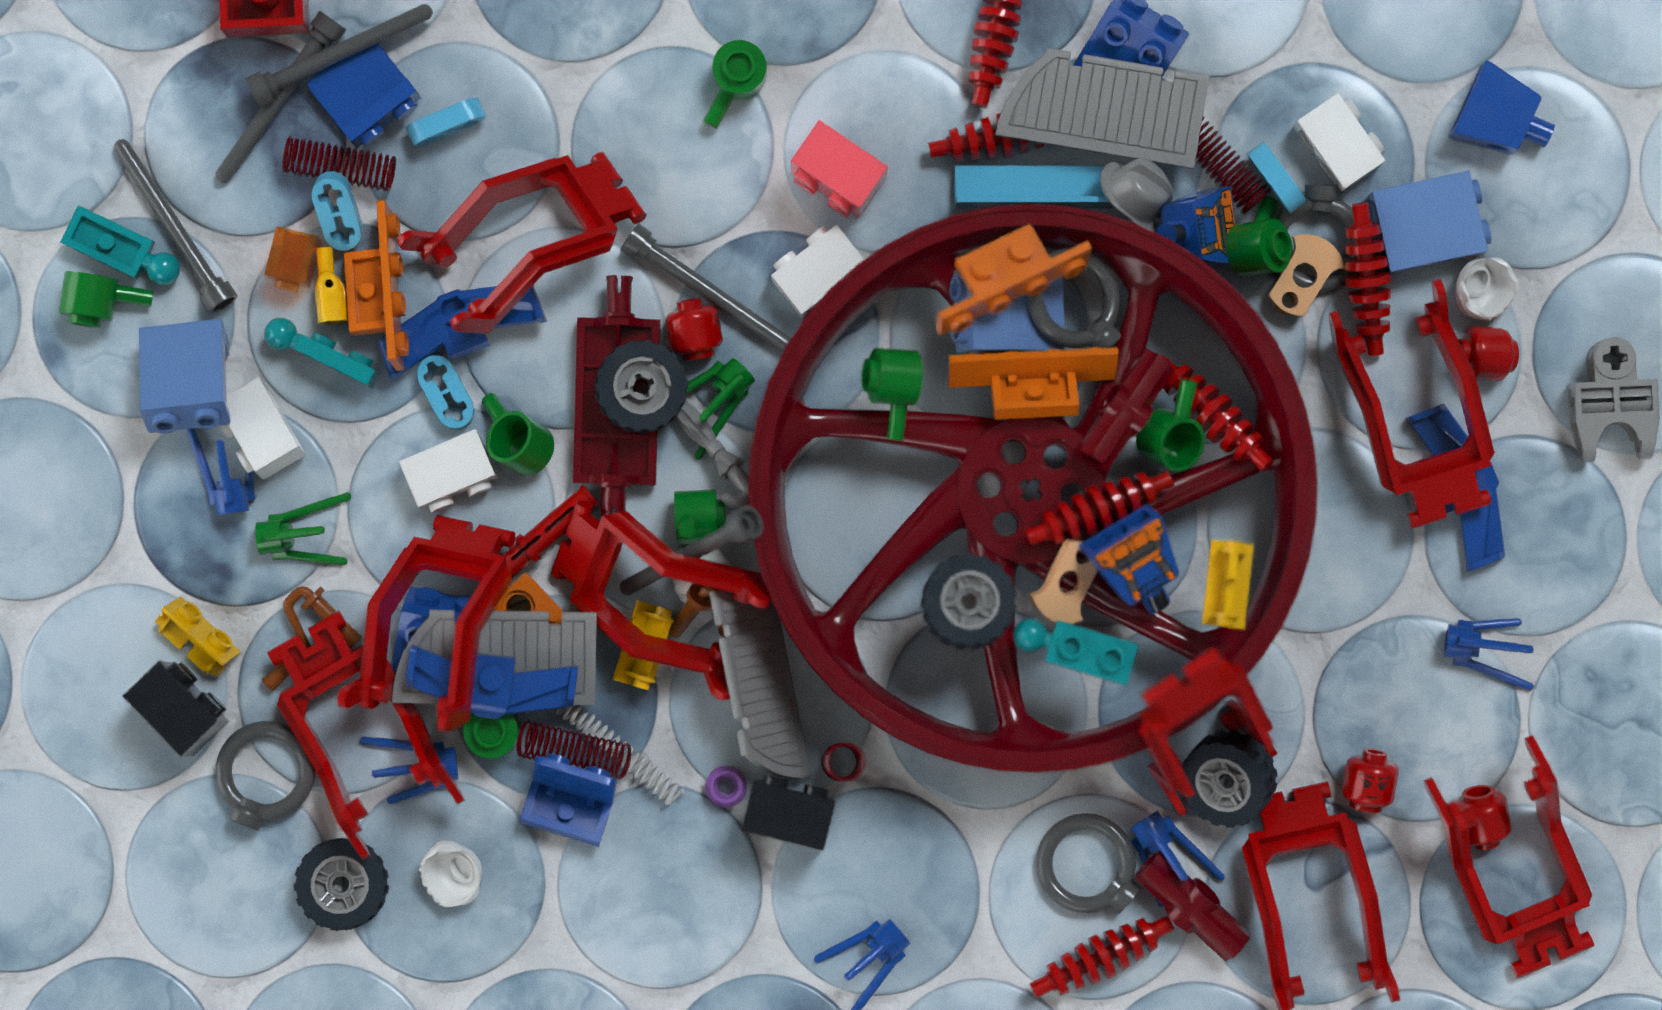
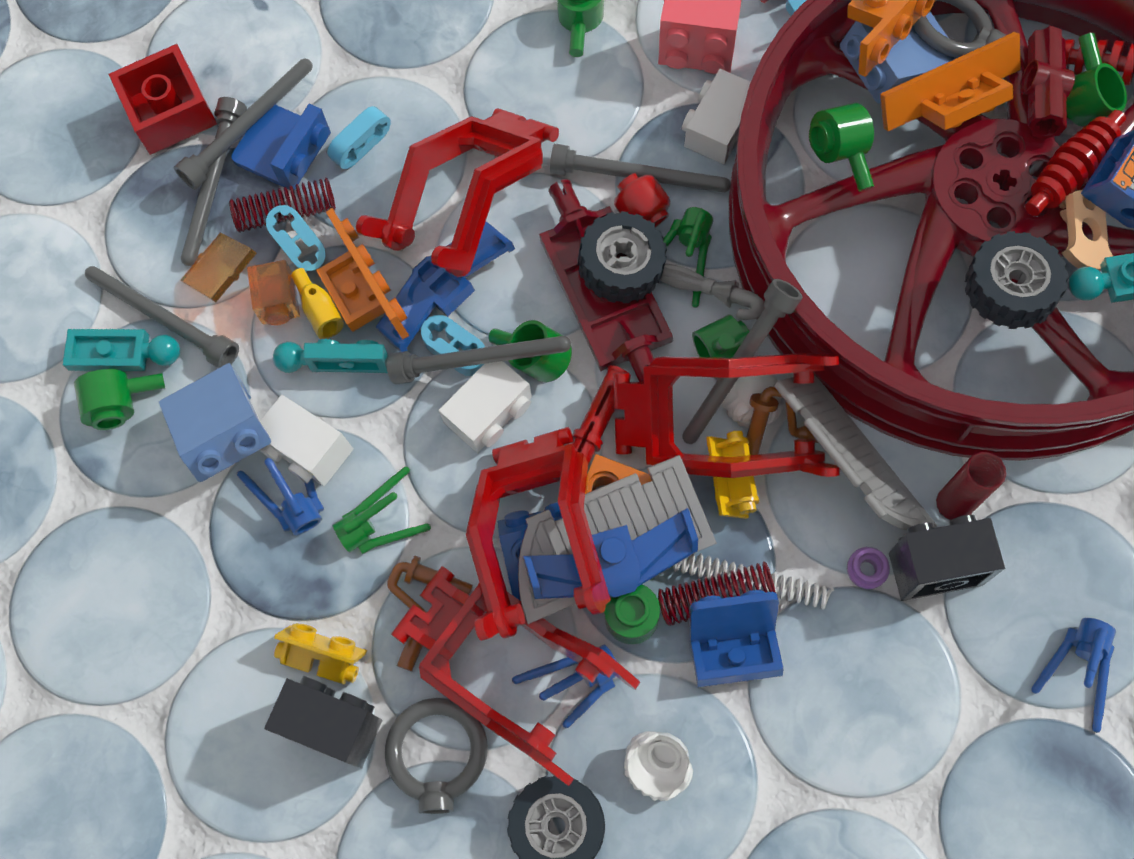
camera: 15 degrees left, 15 degrees down
(248, 205) = (218, 267): none -> clear orange piece
(389, 396) = (405, 367): none -> dark grey piece

